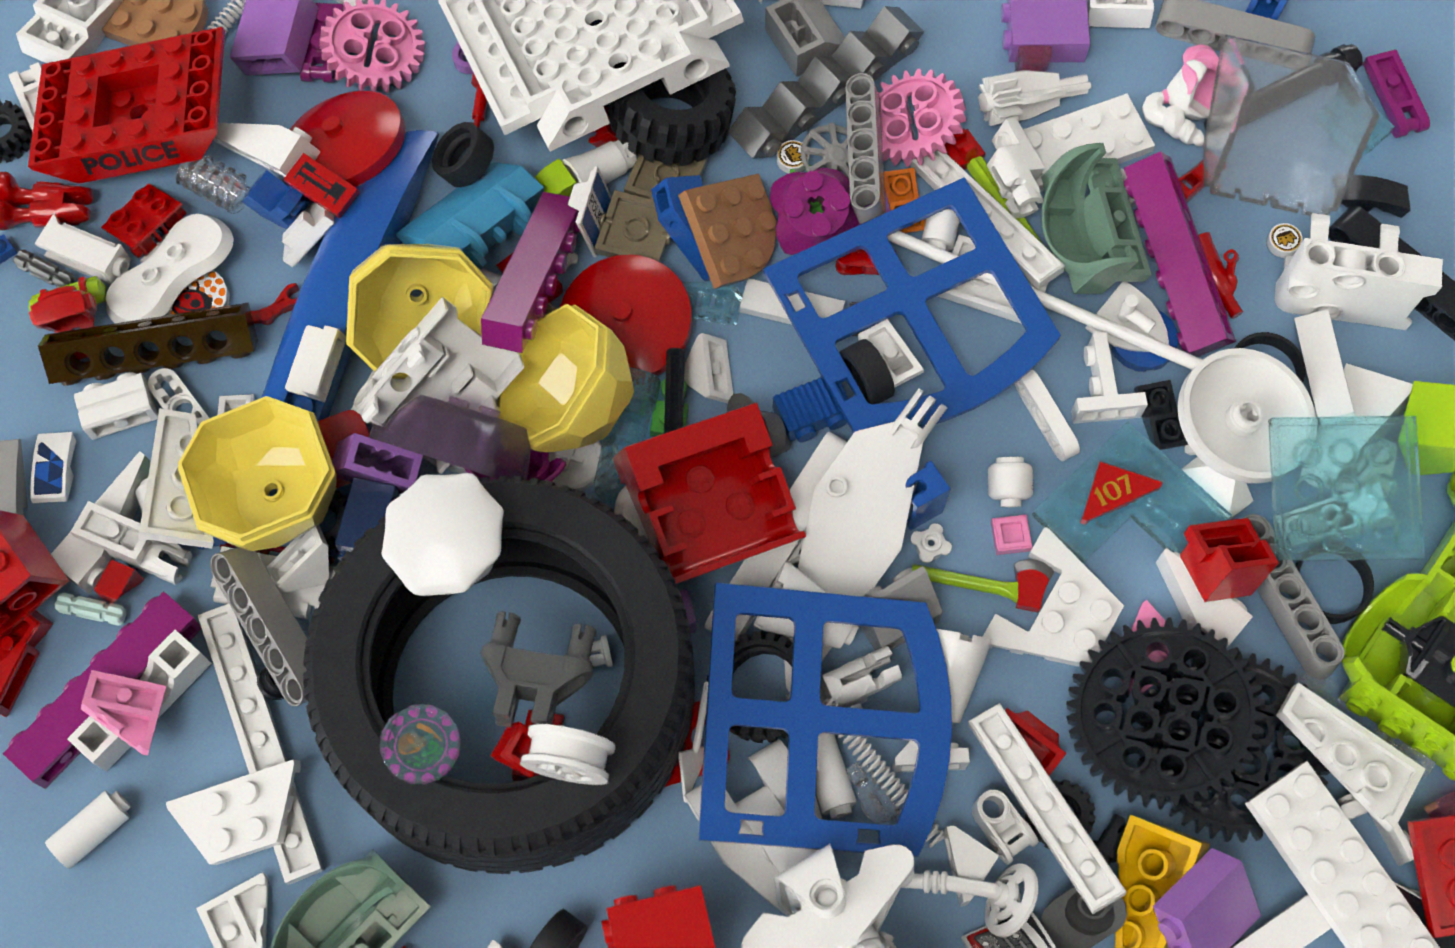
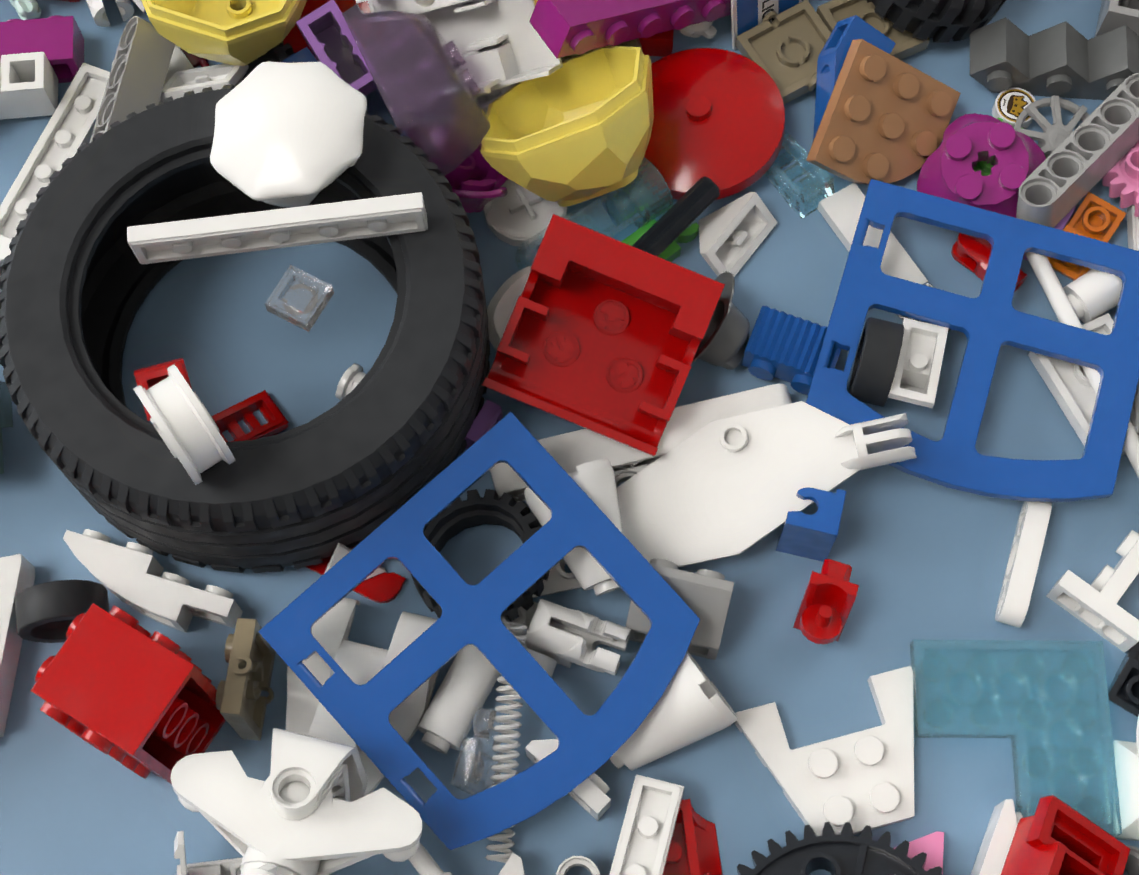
camera: 45 degrees right, 0 degrees up
(420, 744) = (87, 303): clear light blue tile -> none
(491, 597) = (278, 228): none -> white tile
(532, 674) = (240, 335): dark grey connector -> none
(543, 626) = (299, 298): none -> clear tile
(574, 893) = (137, 581): none -> white slope
(695, 870) = (247, 675): none -> dark tan plate
(926, 552) = (776, 590): white plate -> none
(973, 533) = (826, 603): none -> red hips
(1010, 481) = (919, 590): white head -> none
(1011, 534) = (870, 643): bright pink tile -> none
(1027, 591) = (828, 712): piece -> none
(1115, 489) = (1017, 693): red tile -> none

